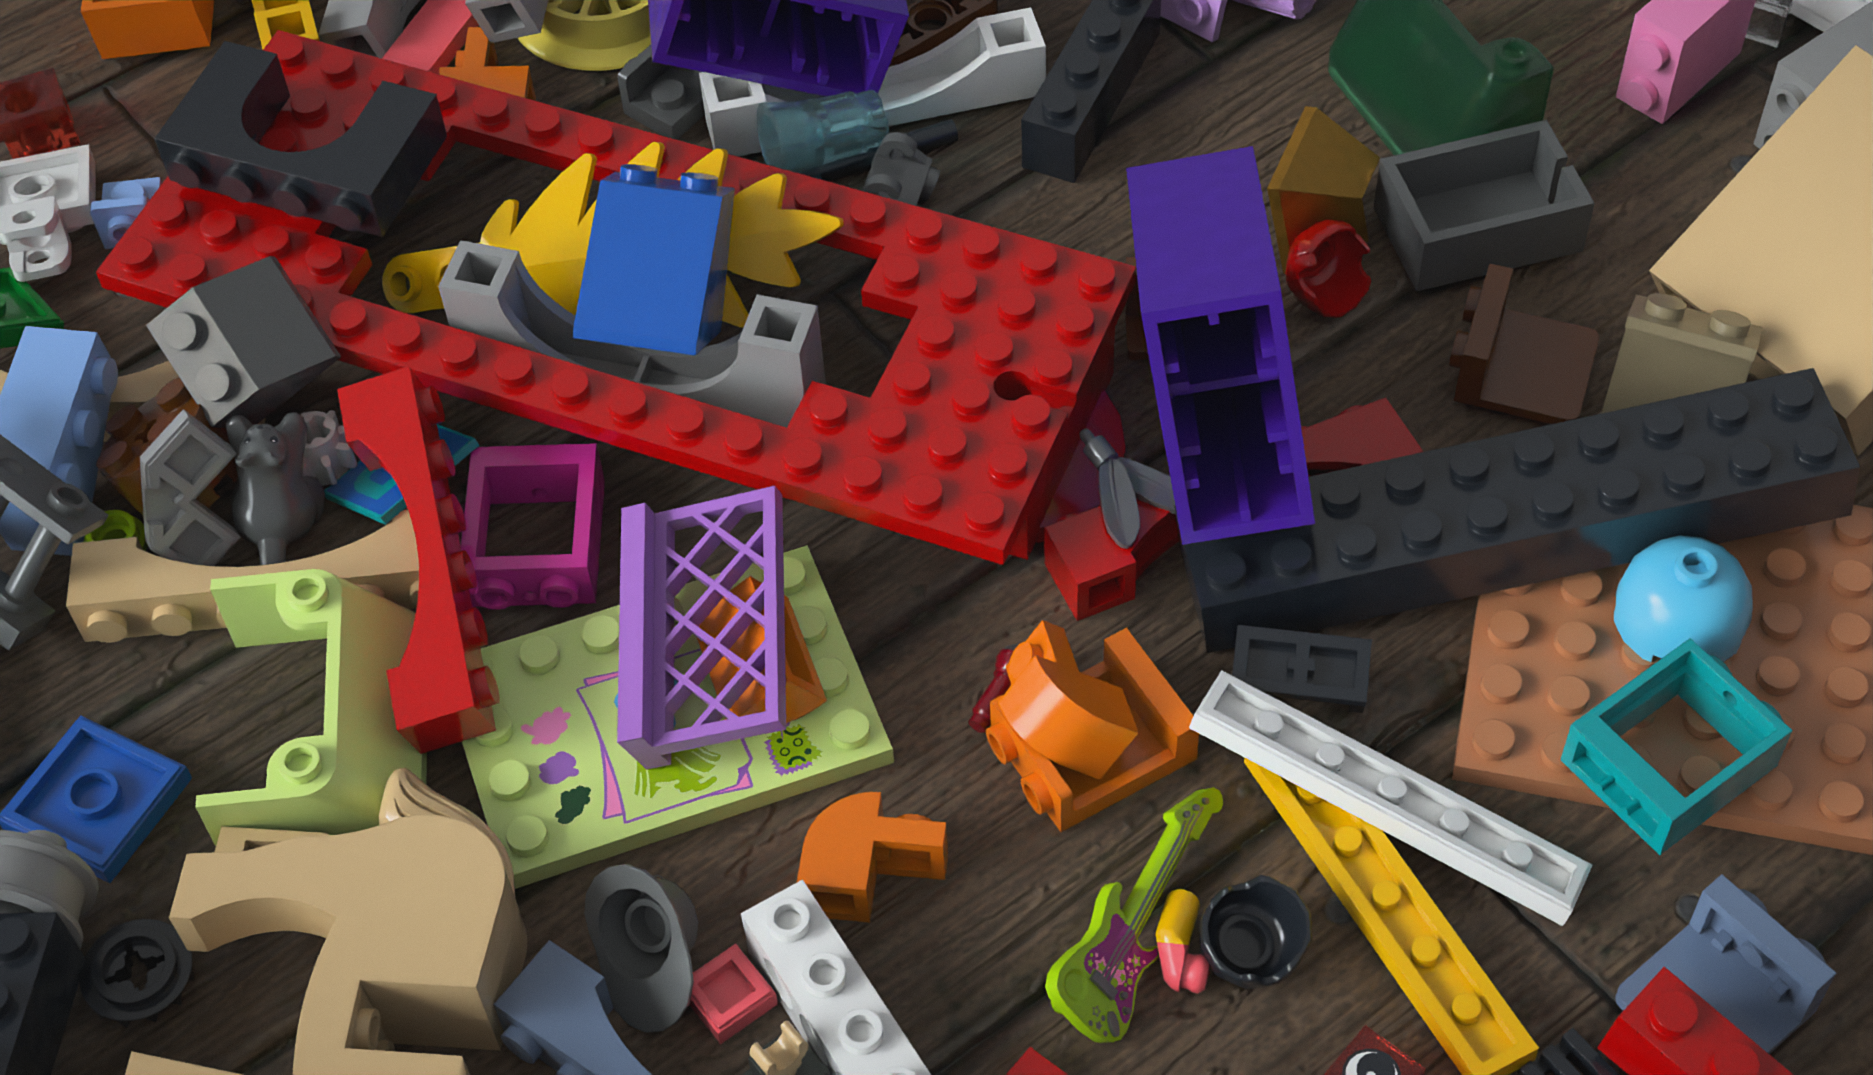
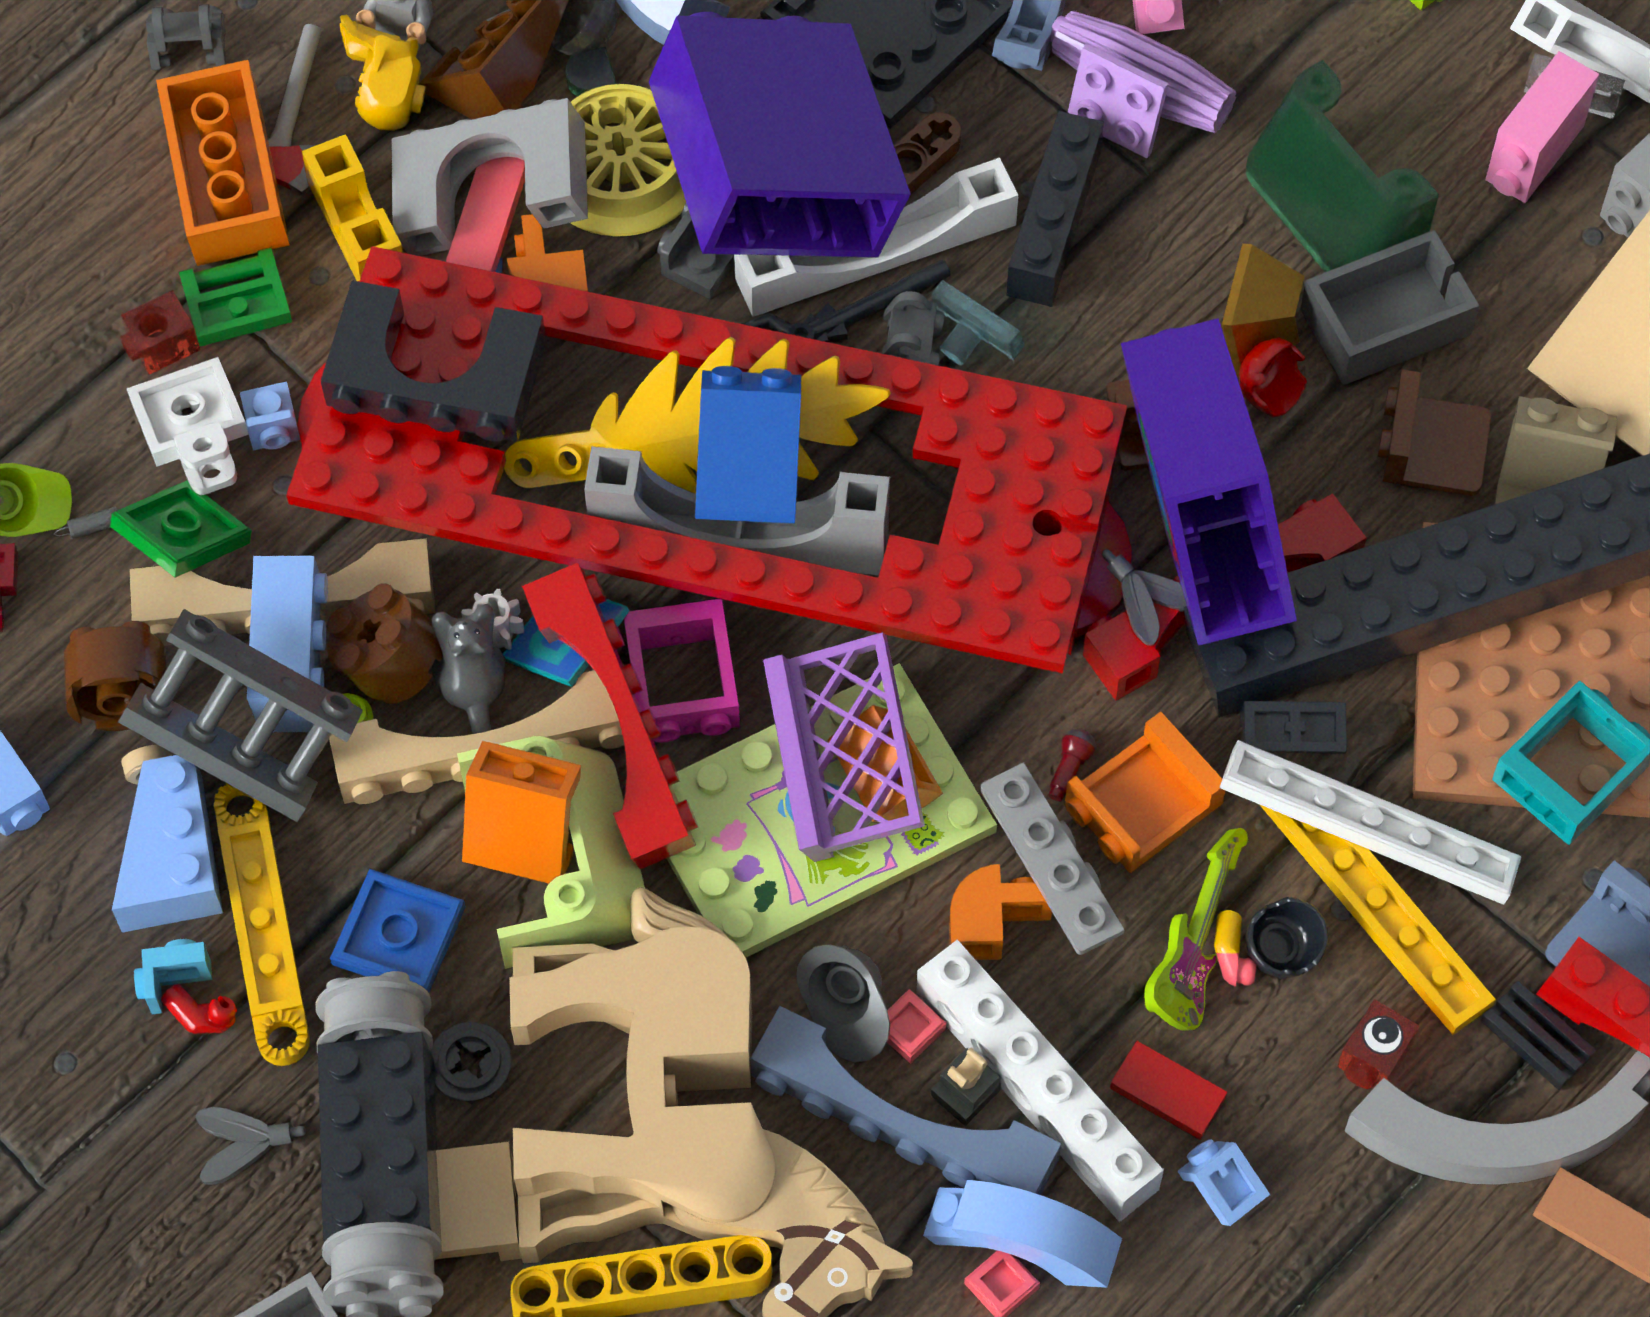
camera: 10 degrees left, 10 degrees up
(128, 90) = (238, 307): none -> green plate
(172, 477) = (402, 670): light grey tile -> none
(243, 342) = (432, 549): dark grey slope -> none
(263, 652) = (519, 812): none -> orange panel
(820, 129) = (841, 291): clear light blue plant -> none
(952, 795) = (1052, 859): none -> light grey bracket
(975, 184) = (973, 325): none -> clear light blue tile
(1062, 710) = (1121, 784): orange brick -> none
(1683, 592) = (1572, 642): medium azure cylinder -> none

